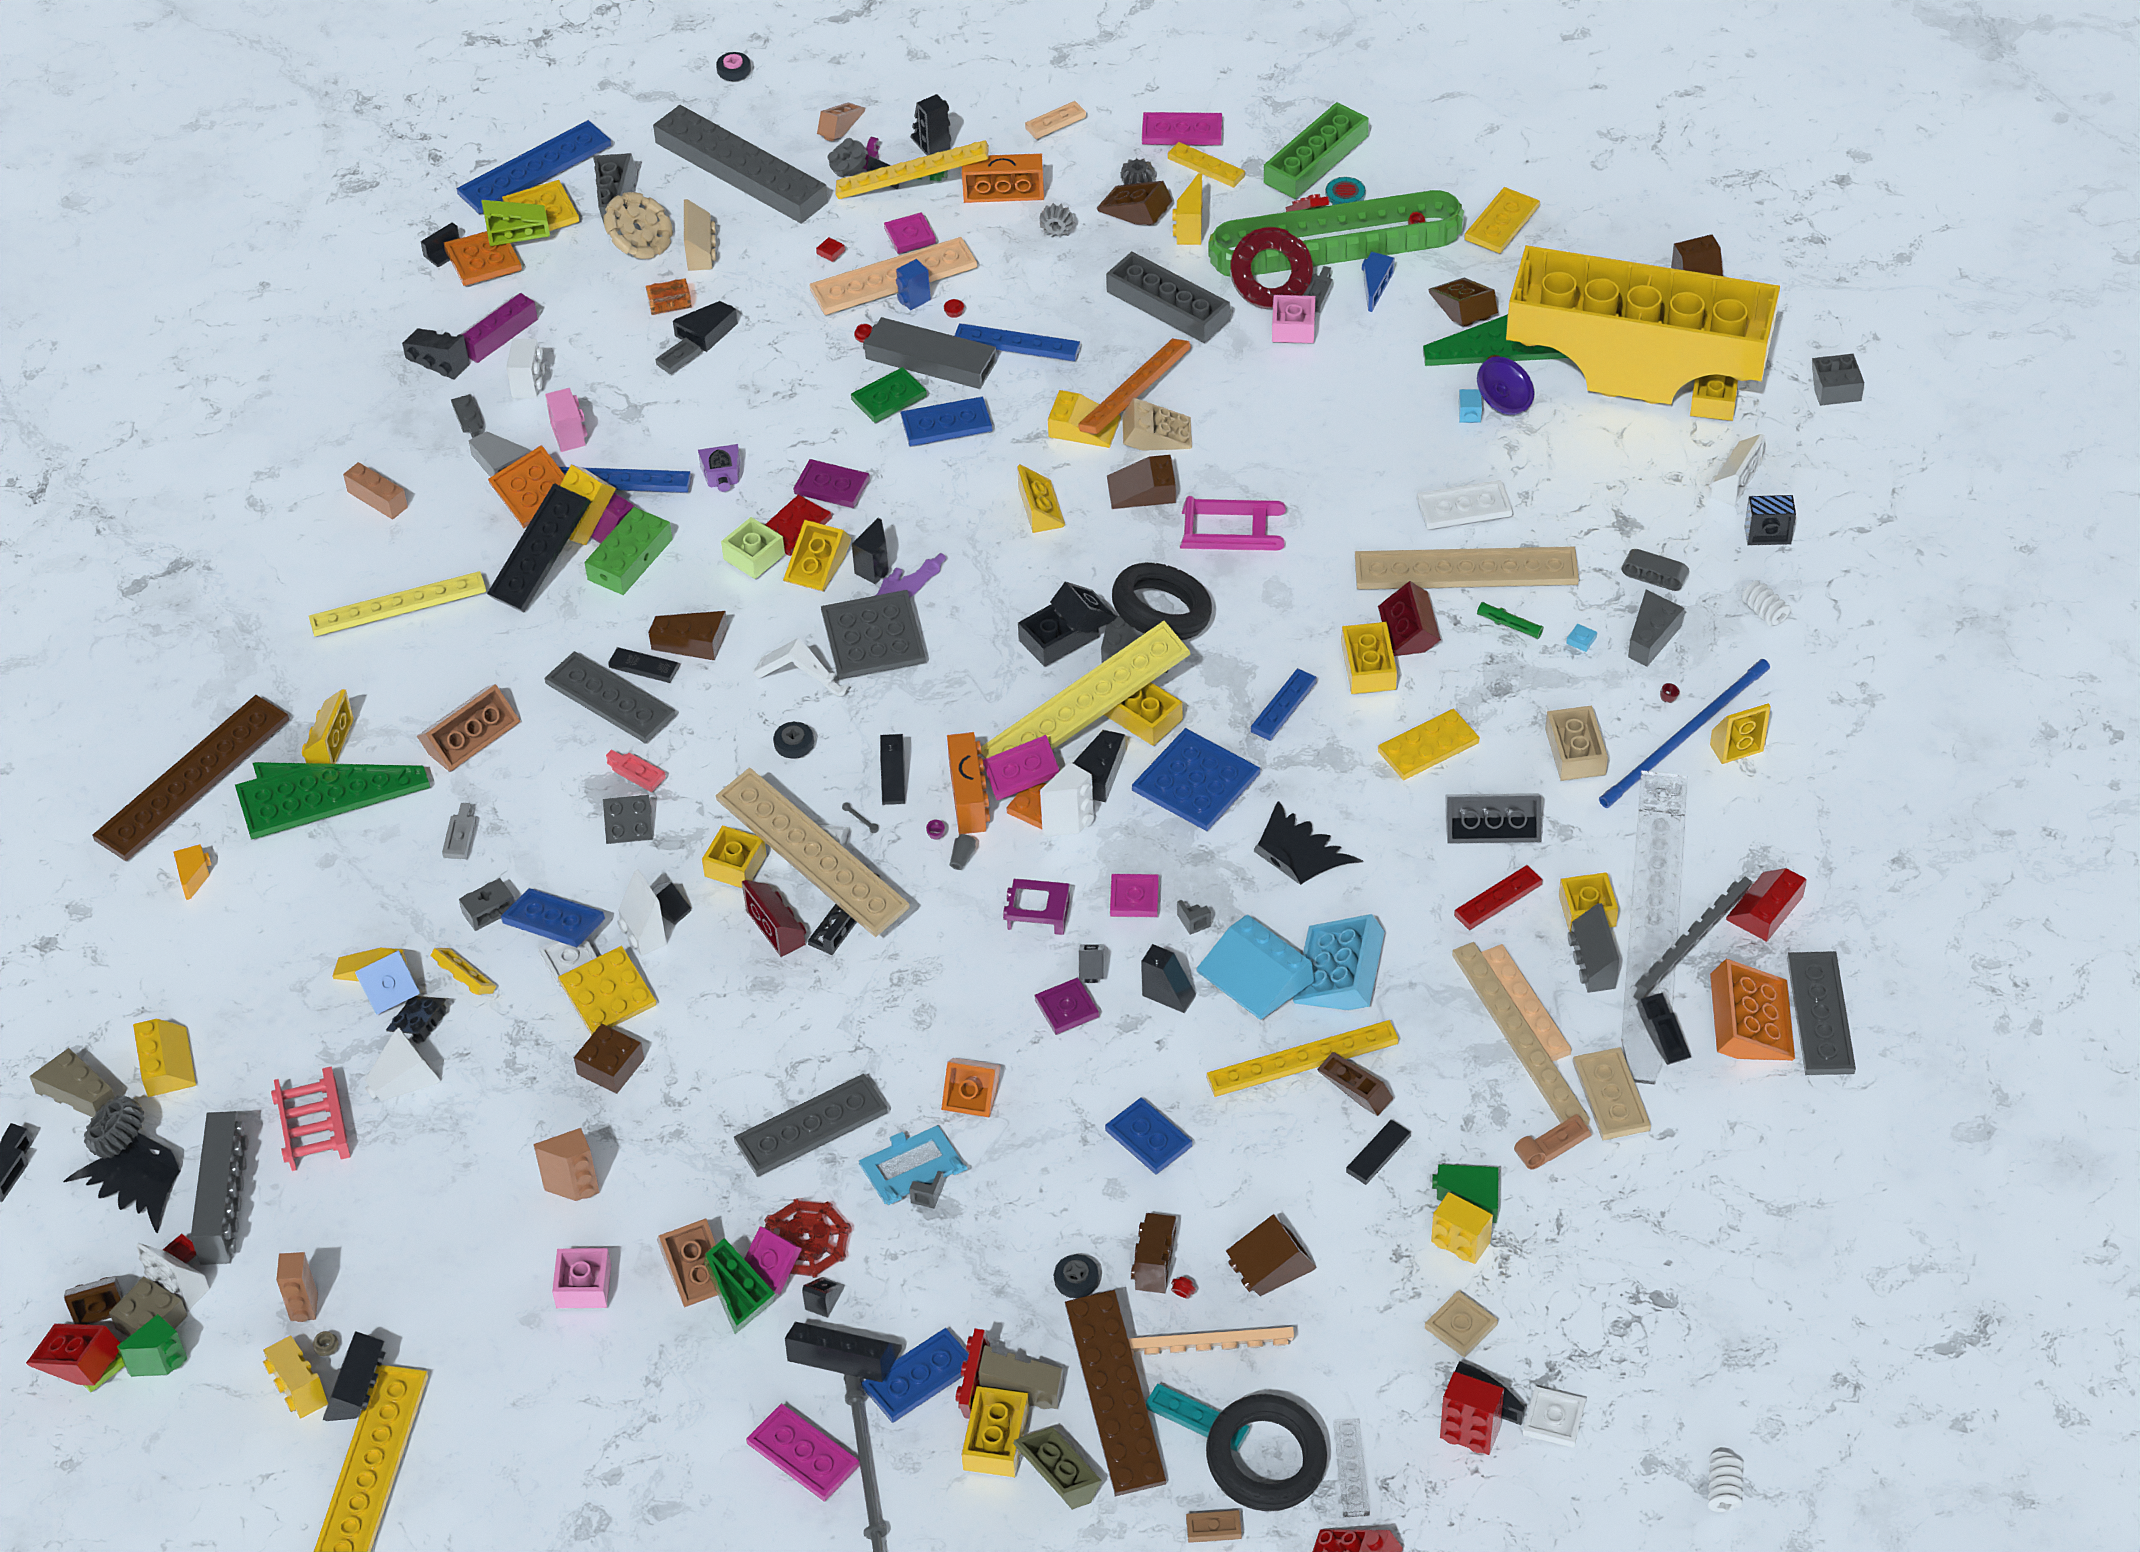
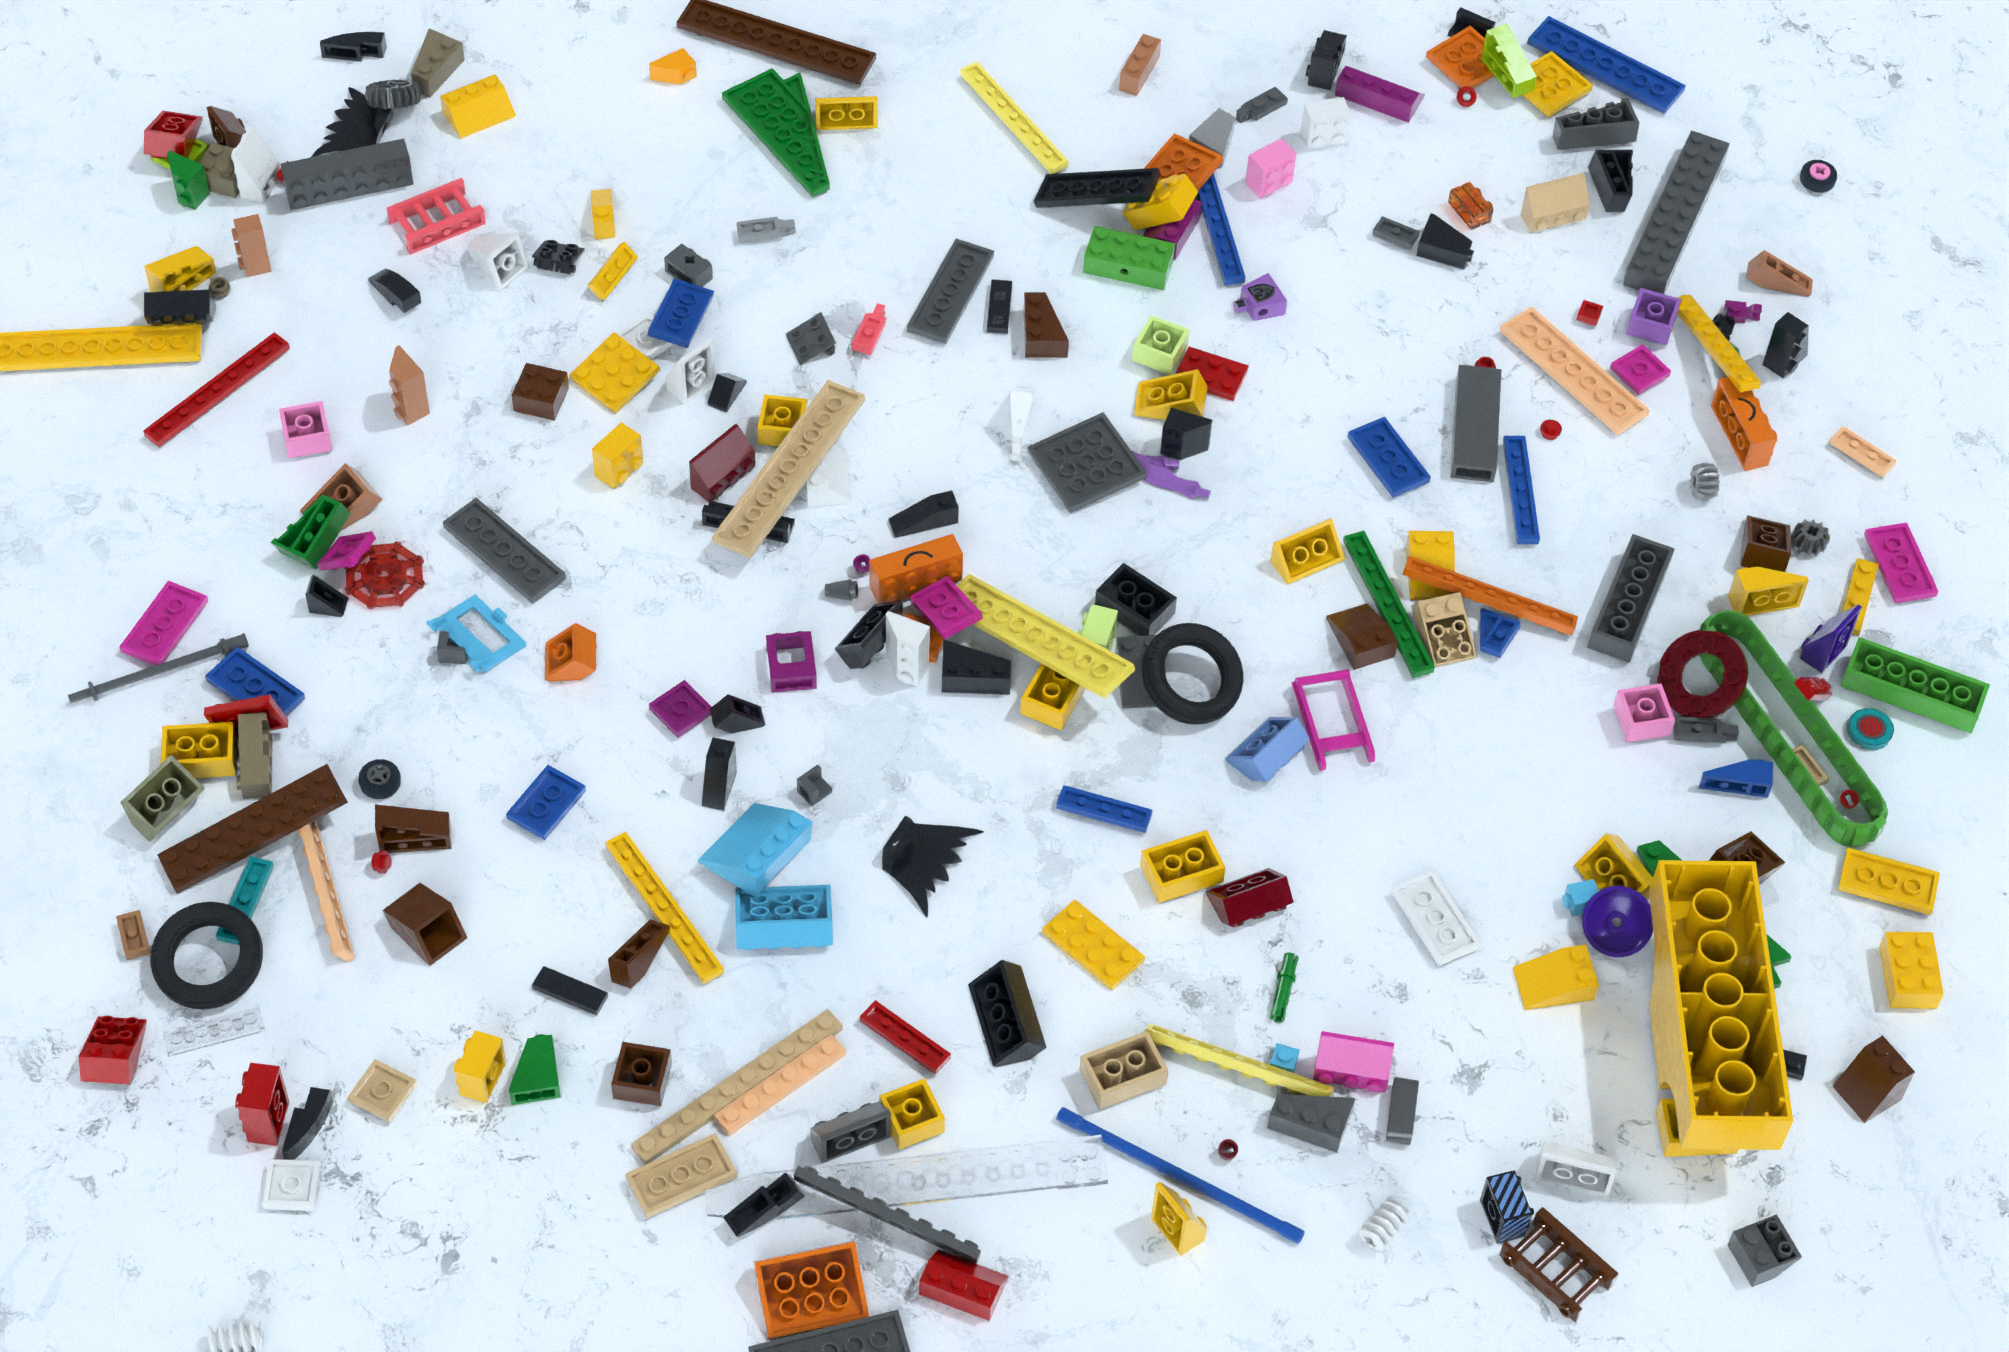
camera: 70 degrees right, 5 degrees up
(387, 982) = (579, 221): light blue plate -> none
(403, 1171) = (396, 289): none -> black slope
(469, 728) = (882, 203): nougat slope -> none
(482, 1363) = (216, 389): none -> red plate
(532, 265) = (1466, 90): none -> red plate
(645, 218) = (1548, 143): tan plate -> none
(672, 189) = (1613, 178): none -> black wedge
(730, 999) = (617, 455): none -> yellow brick
(793, 740) = (940, 442): black wheel -> none
(831, 483) = (1272, 387): magenta plate -> none
(838, 157) = (1722, 294): dark grey plate -> none
(840, 1351) = (266, 622): black slope -> none
(857, 206) = (1653, 316): none -> medium lavender brick
(873, 827) = (857, 519): dark grey hinge -> none
(888, 395) = (1407, 404): green plate -> none
(913, 284) = (1556, 383): blue brick -> none
(1034, 829) = (867, 635): none -> black slope
(1081, 608) = (1150, 605): black slope -> none
(1088, 653) = (1100, 625): none -> yellowish green brick
(1110, 458) = (1388, 604): none -> green plate
(1134, 895) = (826, 734): dark pink plate -> none
(1172, 395) = (1496, 632): none -> blue wing
(1196, 779) = (984, 755): blue plate -> none
(1250, 574) = (1269, 748): none -> medium blue slope
(1257, 181) = (1829, 639): none -> dark purple slope
(1443, 379) = (1614, 864): none -> yellow slope
(1466, 567) = (1345, 936): tan plate -> none
(1497, 1101) = (641, 1073): none -> reddish brown brick
(1547, 440) = (1557, 978): none -> yellow slope
(1552, 1143) = (608, 1134): nougat plate -> none
(1587, 661) = (1230, 1060): none -> light yellow plate
(1593, 227) = (1911, 970): none -> yellow brick
(1605, 587) = (1353, 1061): none -> slope
(1823, 489) = (1576, 1249): none -> reddish brown fence

